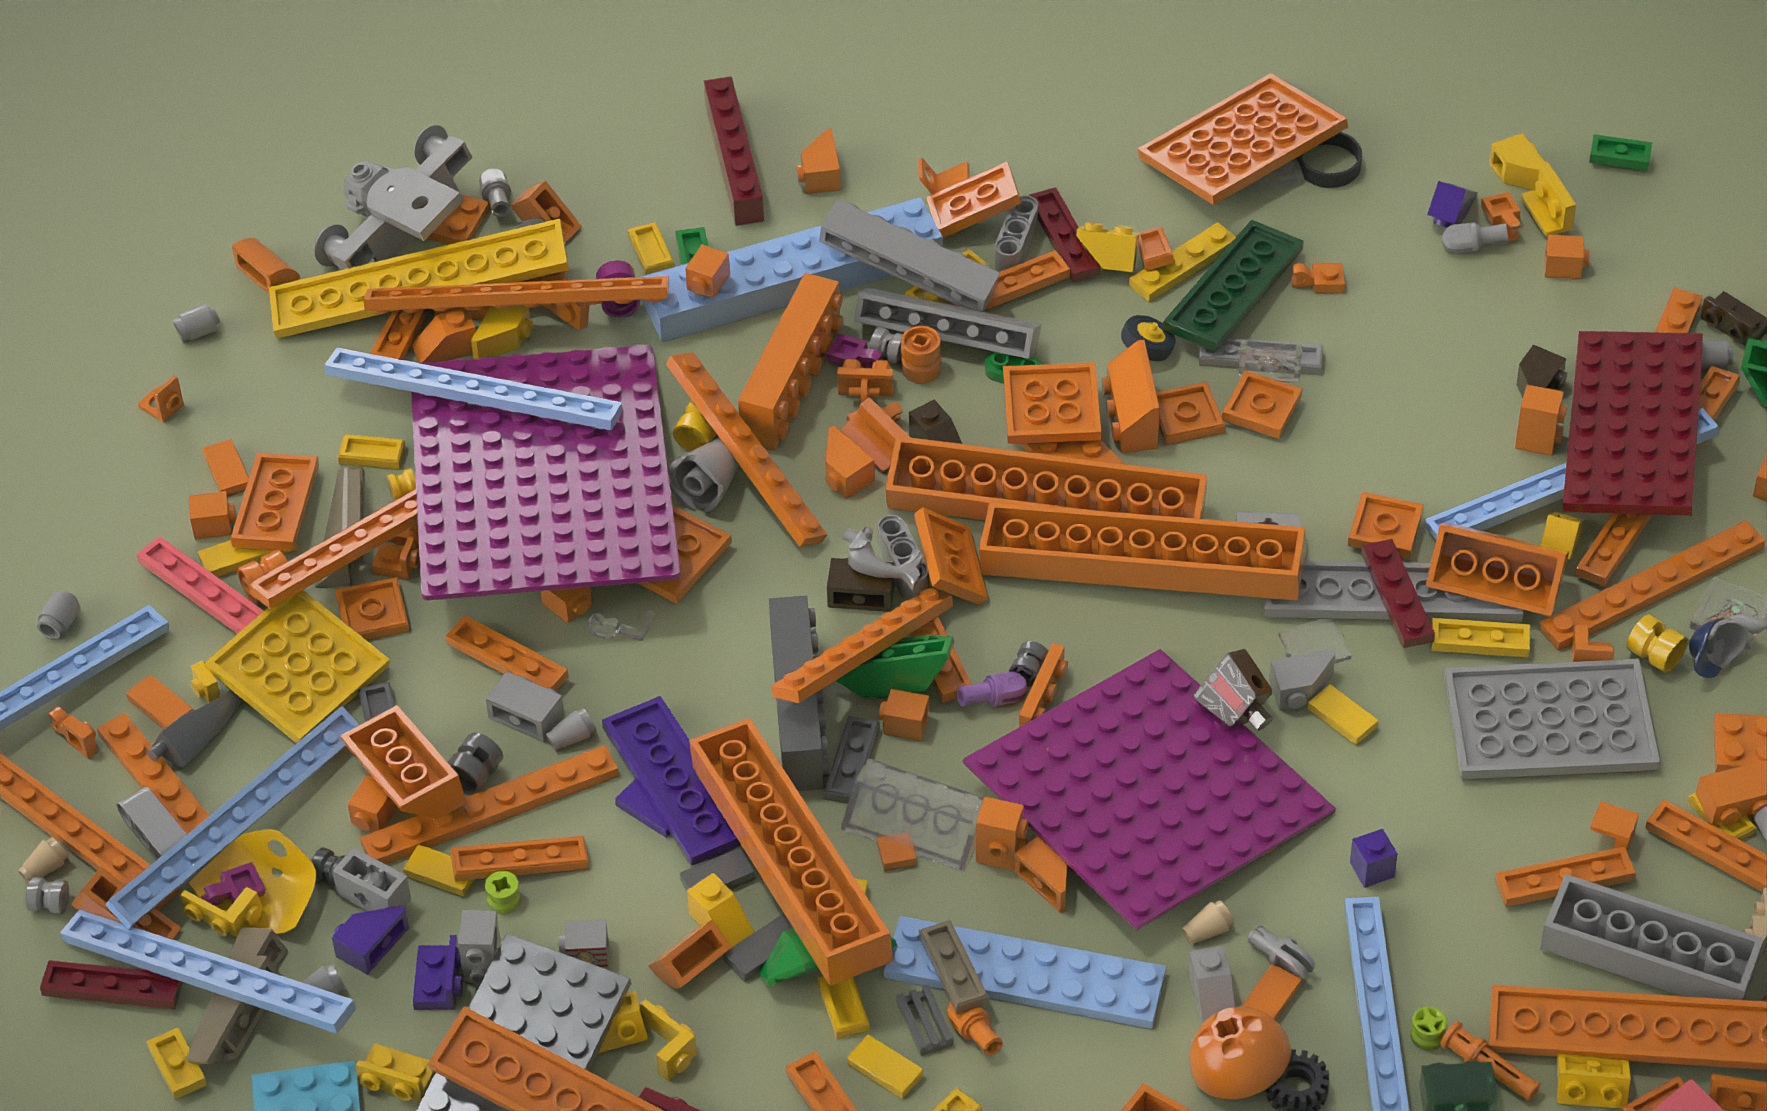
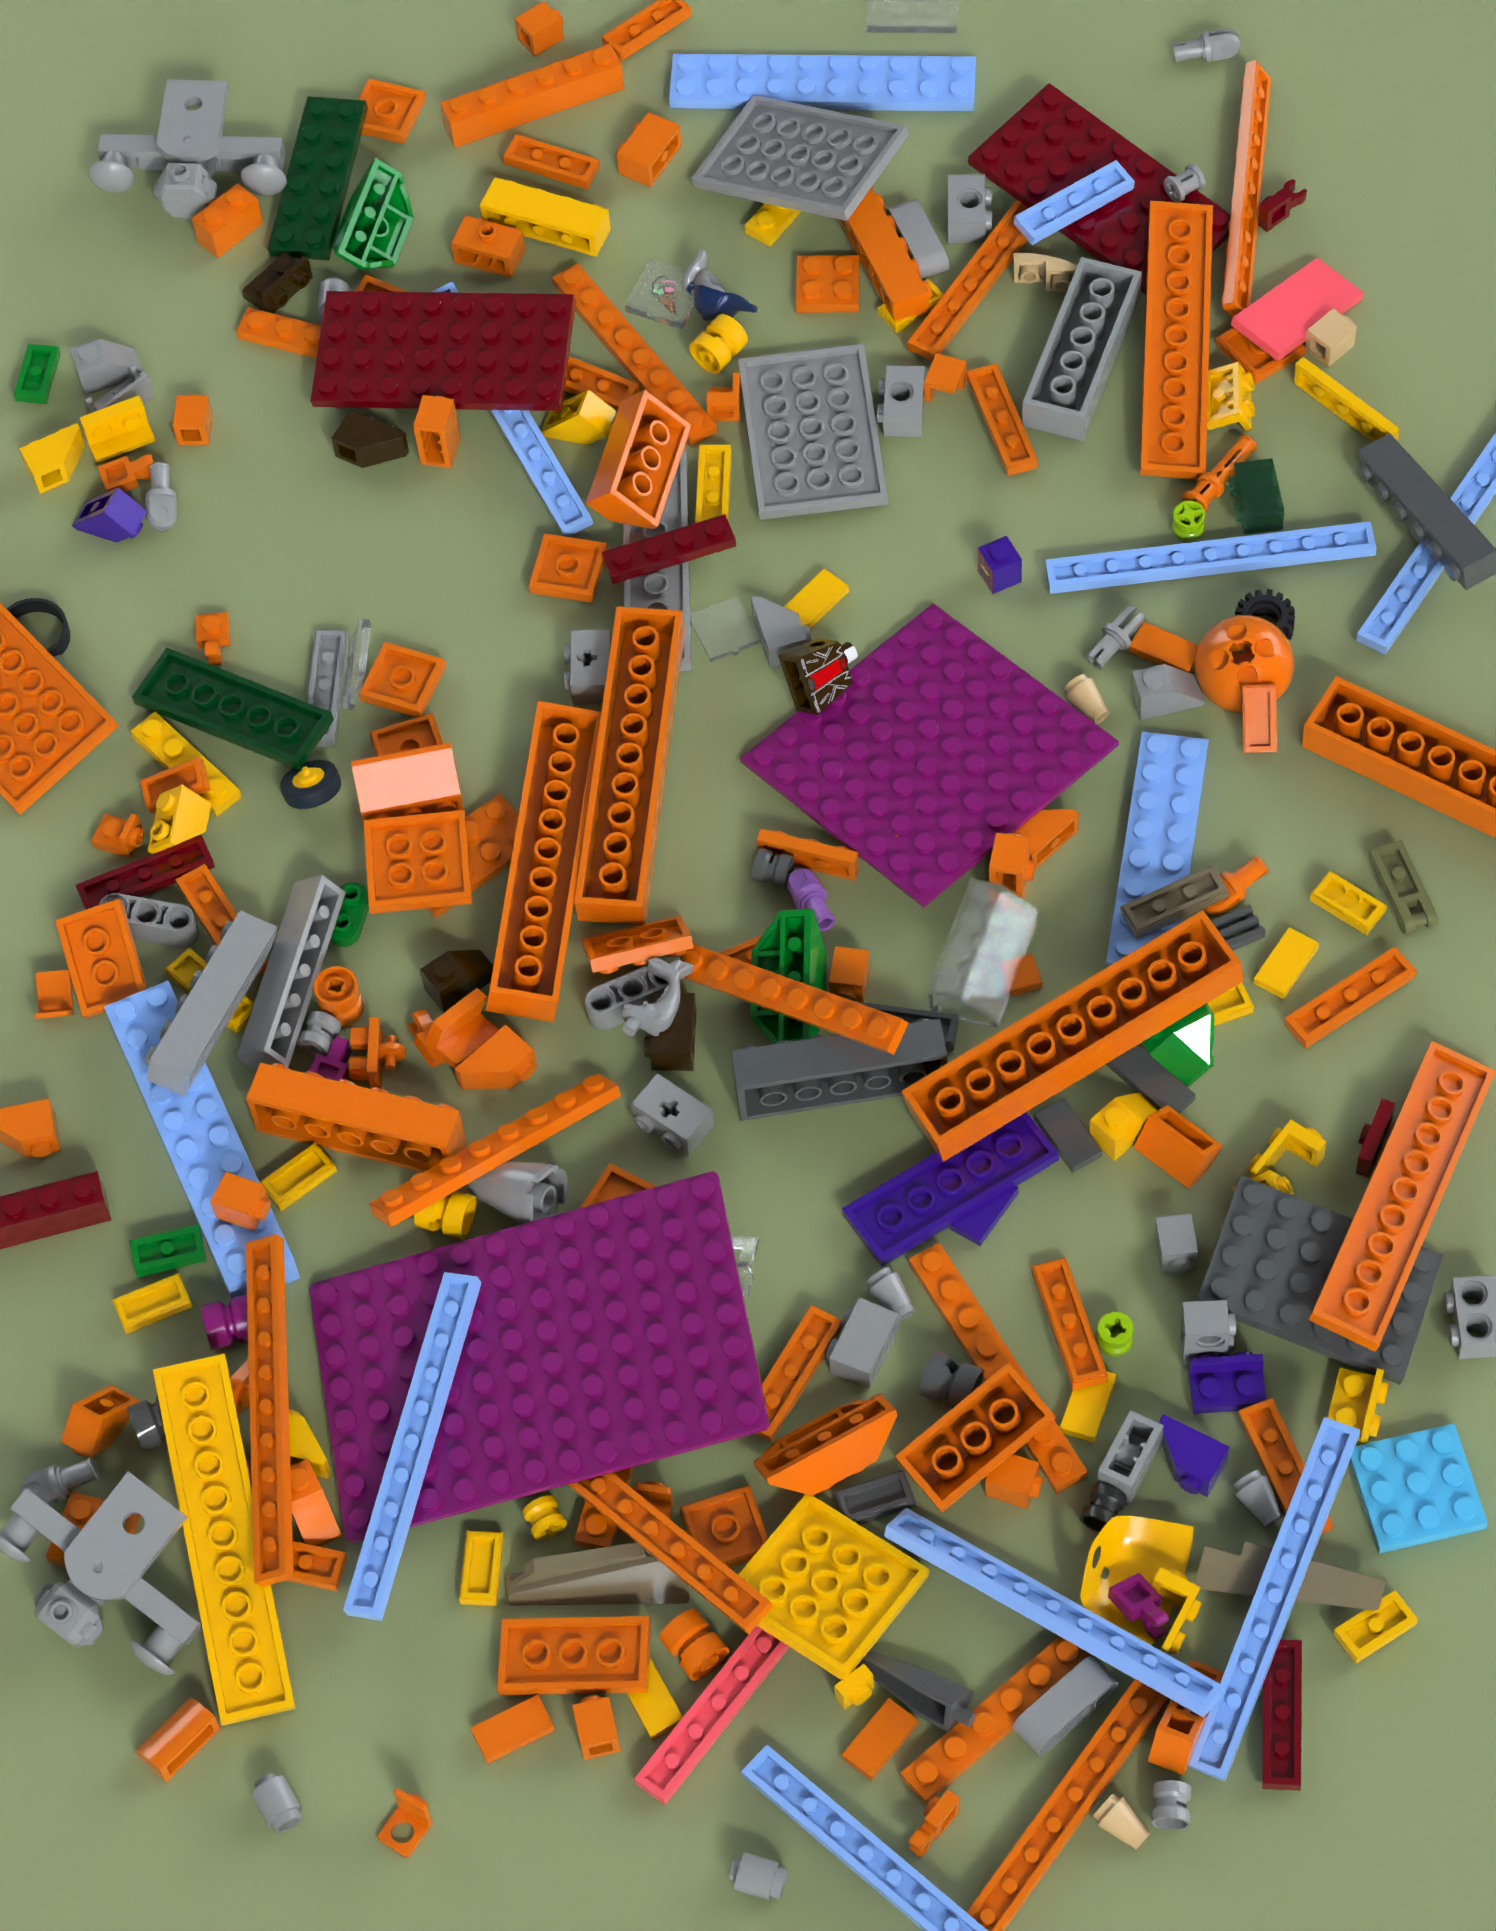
camera: 90 degrees left, 10 degrees up
(371, 1003) = (1275, 1451): none -> orange plate
(423, 665) = (829, 1447): none -> orange wedge
(750, 333) = (298, 1176): none -> yellow tile
(776, 576) = (672, 1115): none -> light grey brick
(1111, 214) = (119, 835): none -> orange bracket
(1167, 1058) = (1259, 718): none -> orange tile
(1580, 790) = (903, 401): none -> light grey brick
(1593, 212) = (133, 386): none -> light grey hinge
(1629, 195) = (103, 364): none -> light grey slope

